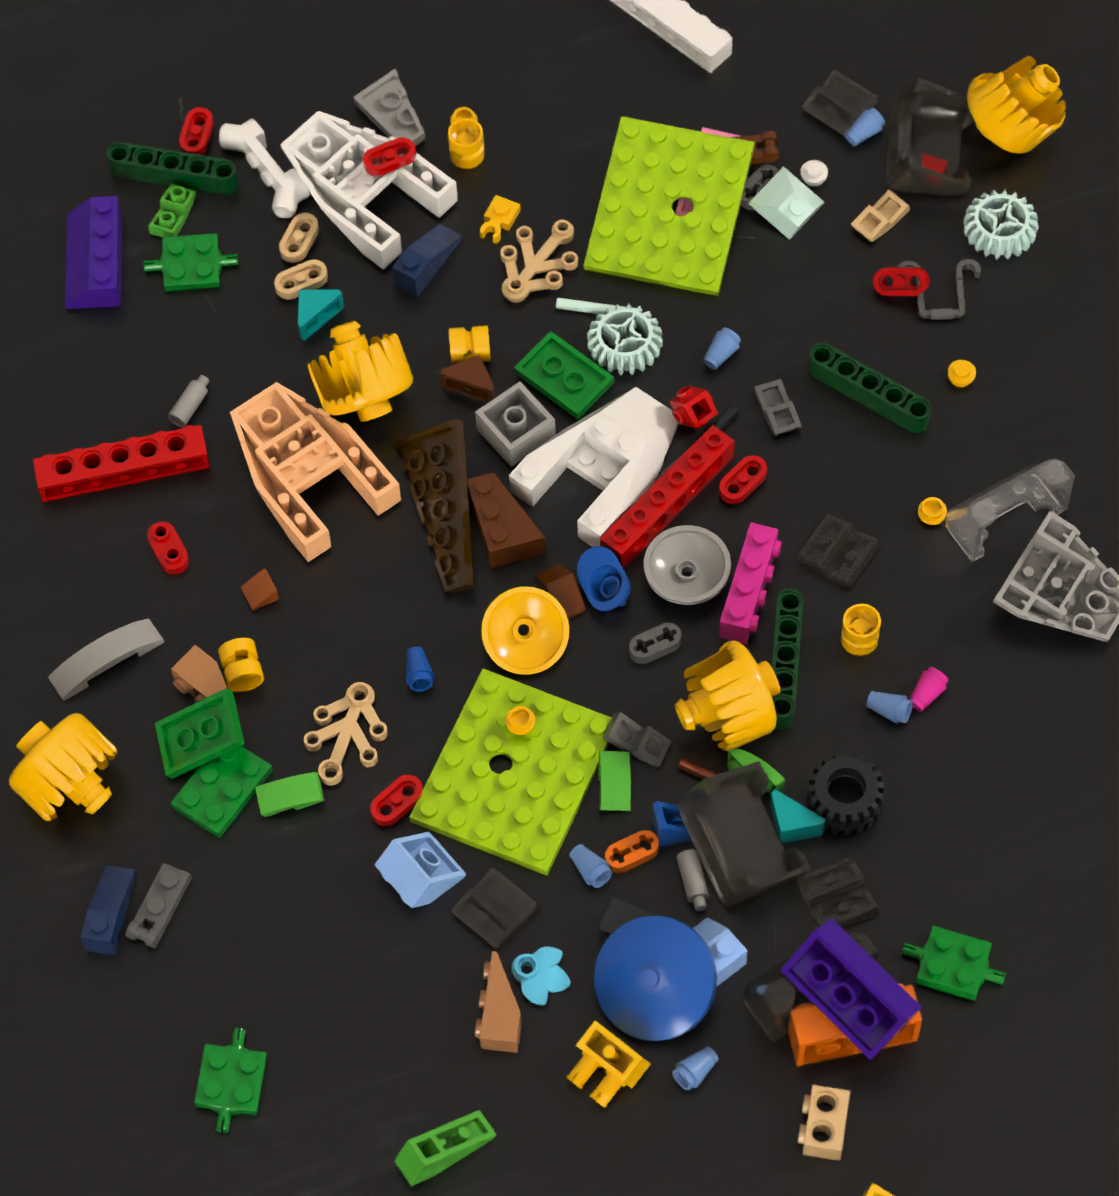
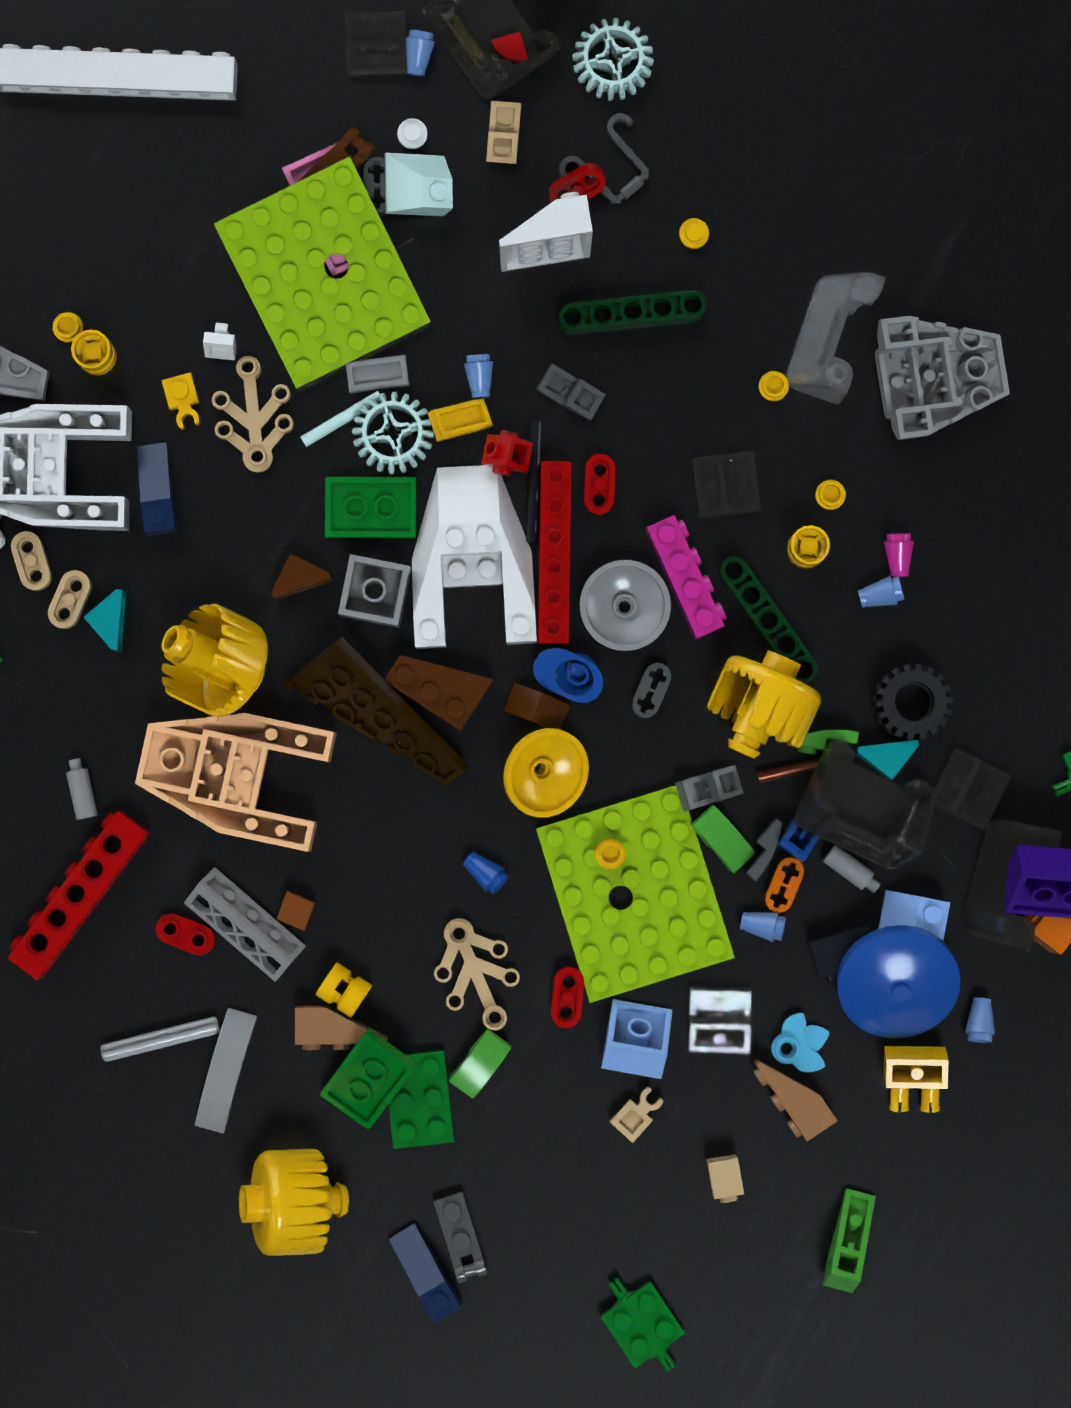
camera: 45 degrees left, 25 degrees up
(81, 599) = (160, 1039): none -> light grey axle
(219, 566) = (247, 920): none -> light grey fence
(364, 923) = (633, 1117): none -> tan plate
(388, 156) = (49, 431): red plate -> none
(393, 1020) = (725, 1178): none -> tan brick
(469, 344) = (270, 546): yellow wheel -> none
(556, 200) = (220, 343): none -> white tile
(631, 818) = (768, 841): none -> dark grey slope
(649, 298) = (377, 374): none -> light grey tile
(680, 363) = (460, 419): none -> yellow tile
(847, 280) = (550, 236): none -> white slope
(910, 613) = (830, 494): none -> yellow plate

